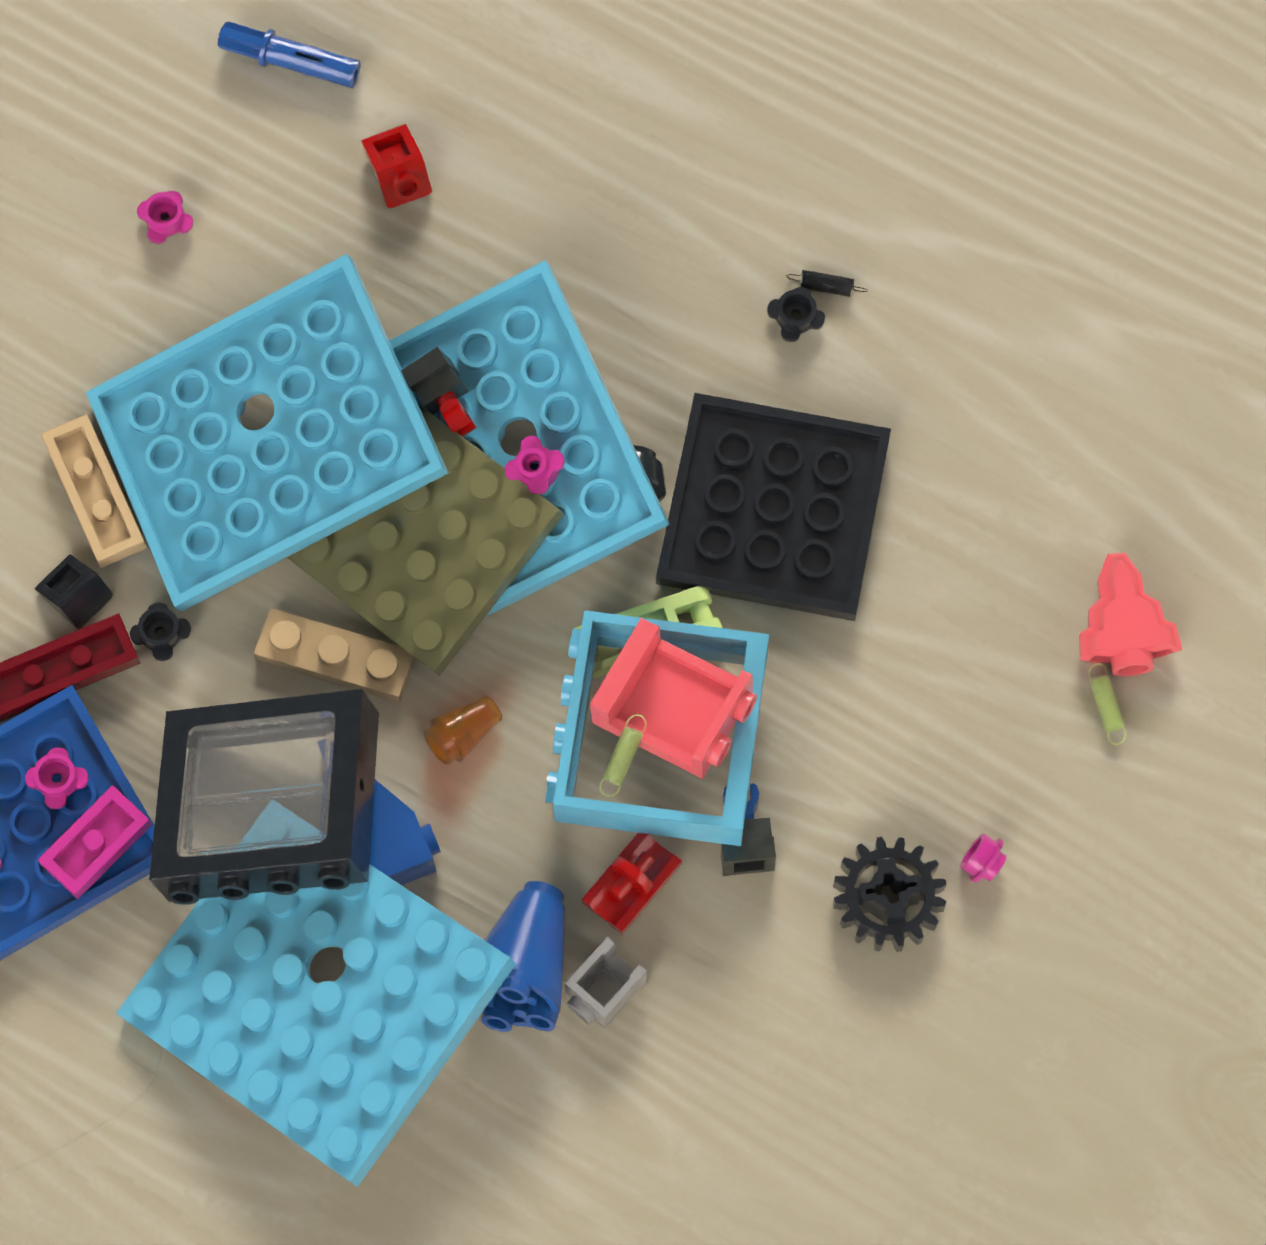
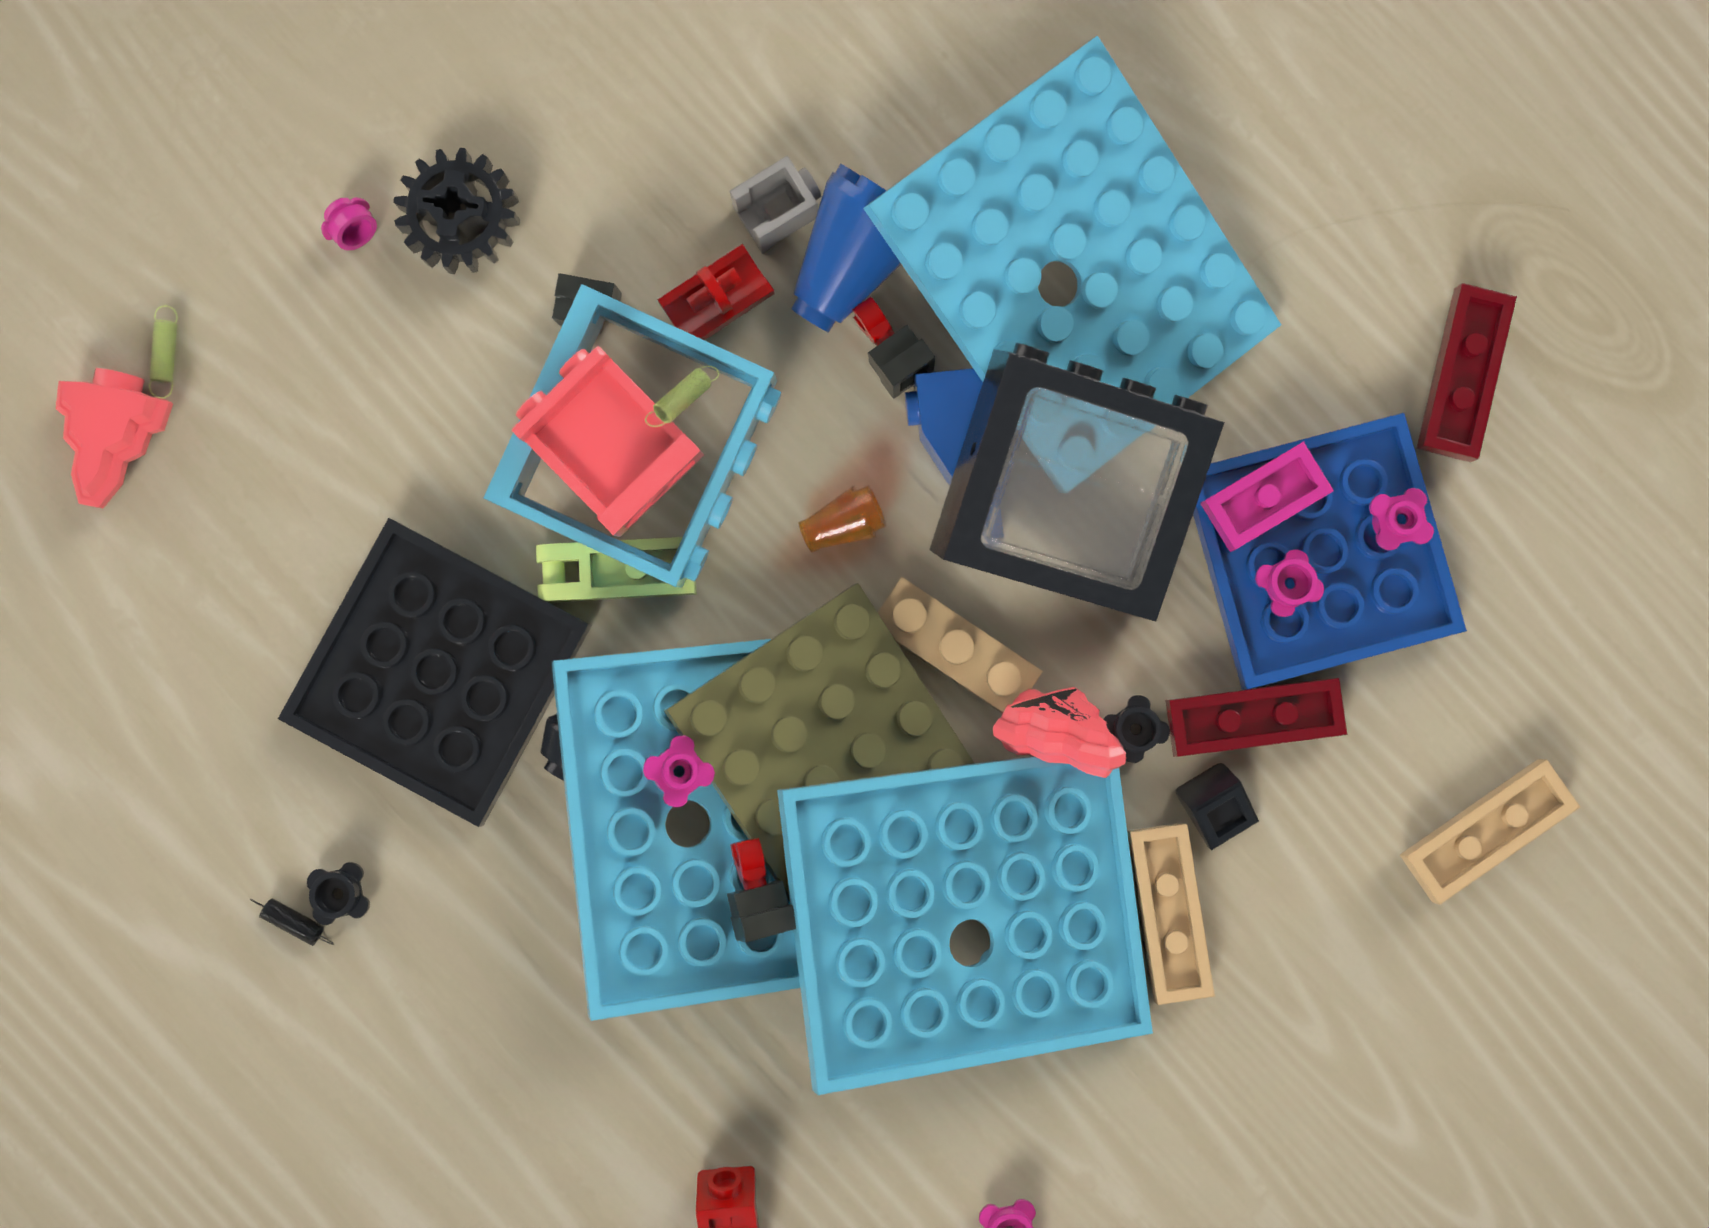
camera: 165 degrees left, 15 degrees up
(225, 599) = (1060, 730): none -> coral rock
(456, 881) = (896, 354): none -> pearl dark grey piece

